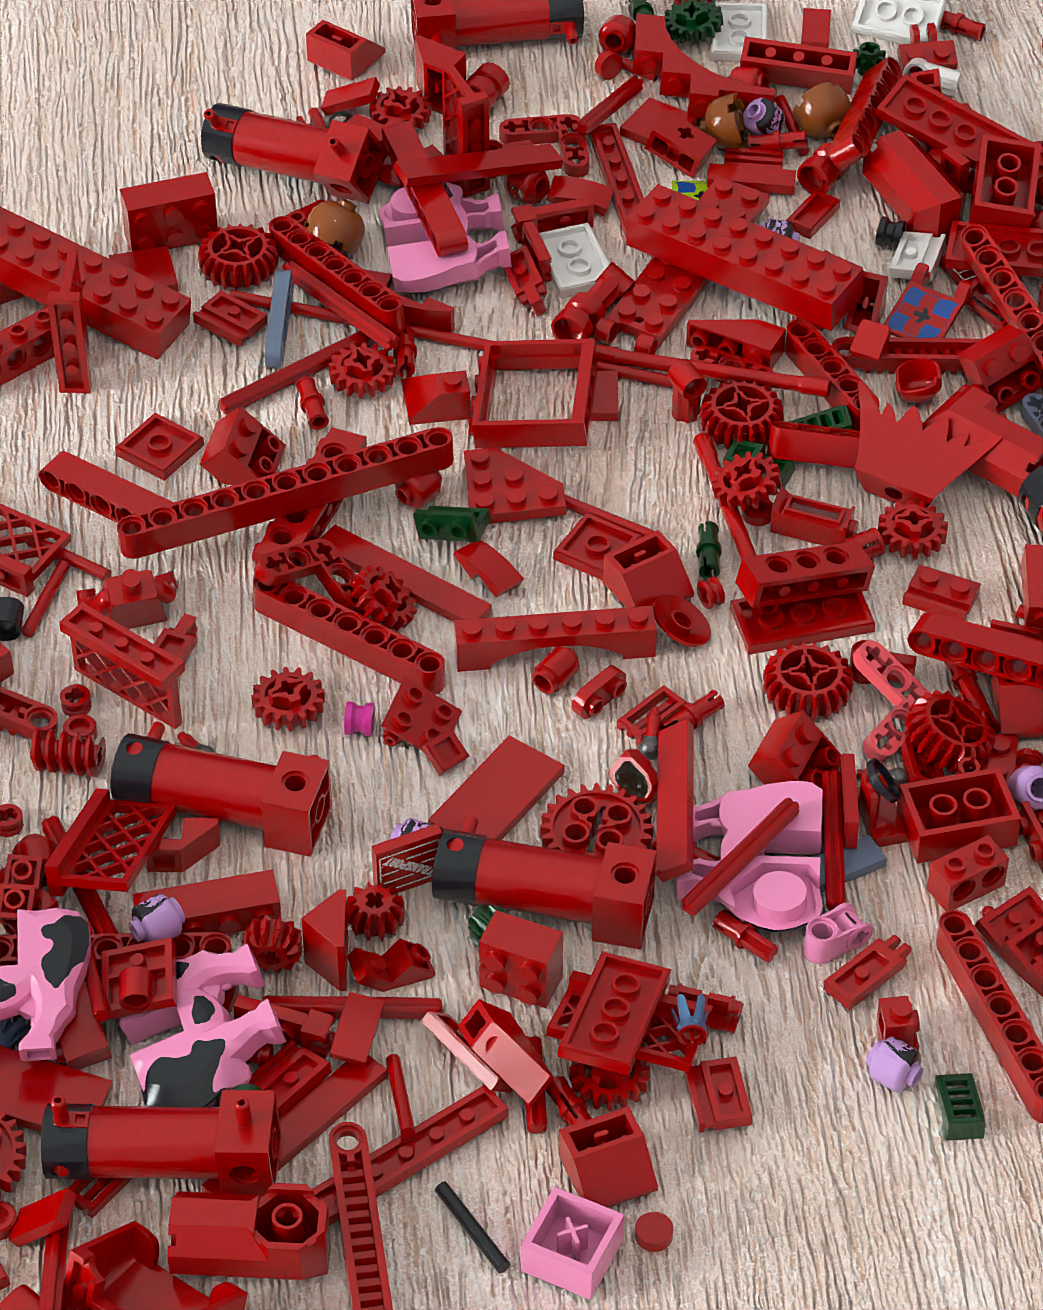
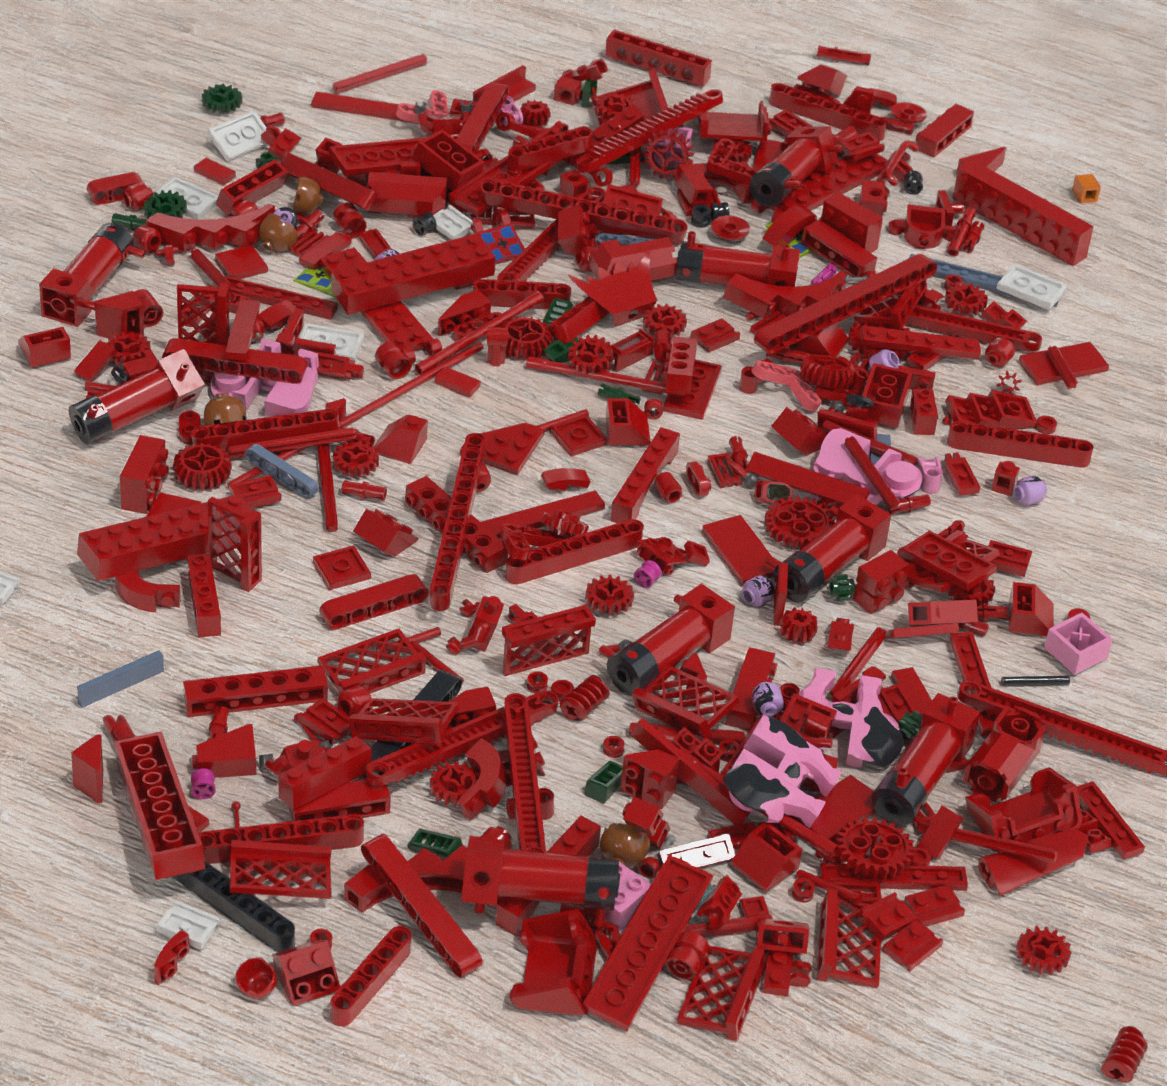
camera: 65 degrees left, 5 degrees down
(274, 943) = (801, 669): red gear -> none
(327, 938) = (820, 644): red slope -> none
(357, 1029) = (885, 660): red slope -> none
(400, 1096) = (936, 667): red bar -> none
(451, 523) = (522, 475): dark green bracket -> none
(534, 355) = (453, 377): red window -> none
(611, 285) = (373, 335): red piece -> none
(680, 144) = (277, 258): red brick -> none
(681, 620) = (669, 425): red dish -> none
(691, 1029) = (978, 537): flat silver piece -> none
(808, 680) = (747, 404): red gear -> none
(870, 340) = (516, 265): red slope -> none
(918, 380) = (555, 266): red hair -> none
(948, 76) = (306, 149): white piece -> none
(960, 1127) = (1066, 484): dark green slope -> none

